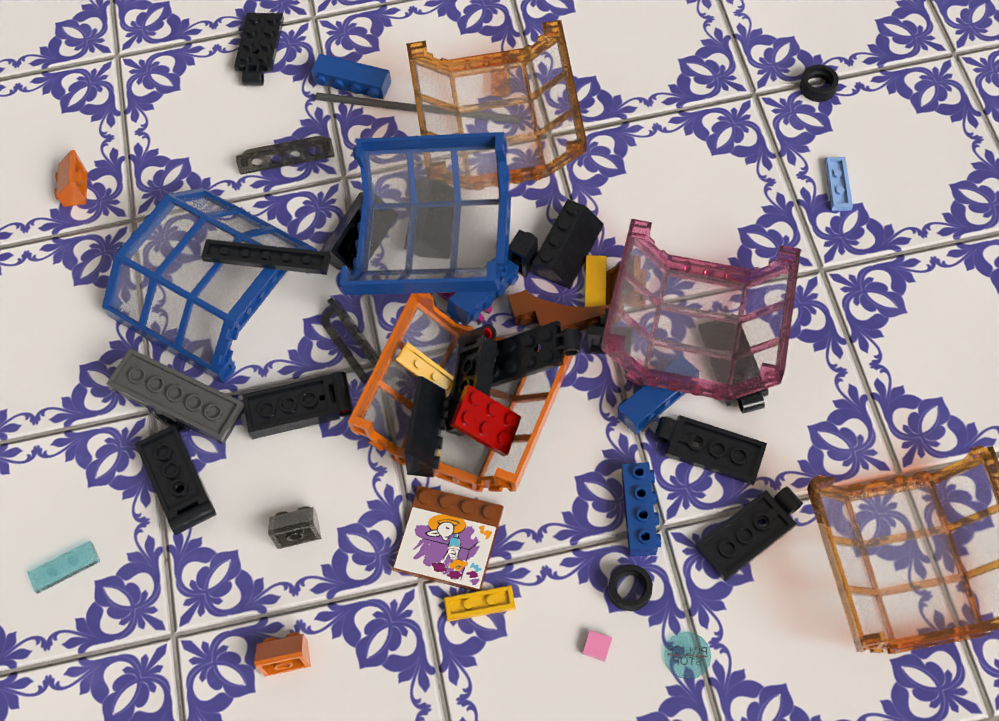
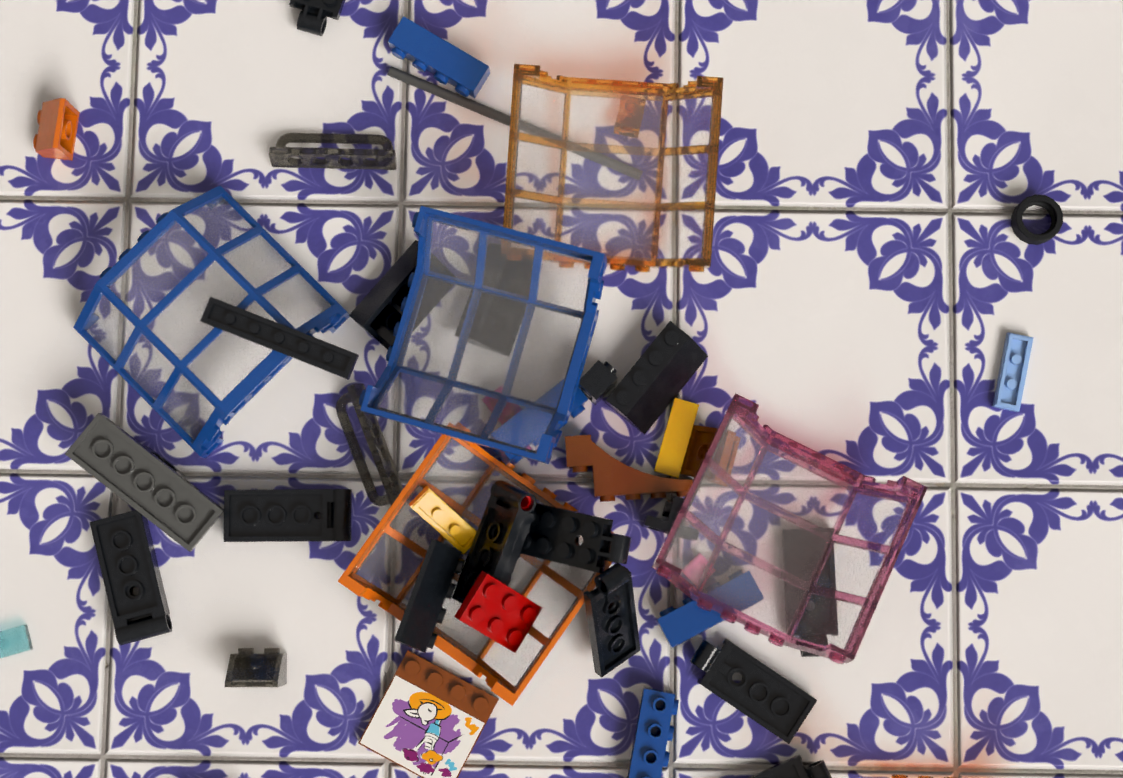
camera: 10 degrees right, 20 degrees up
(582, 409) = (612, 619): none -> black hinge

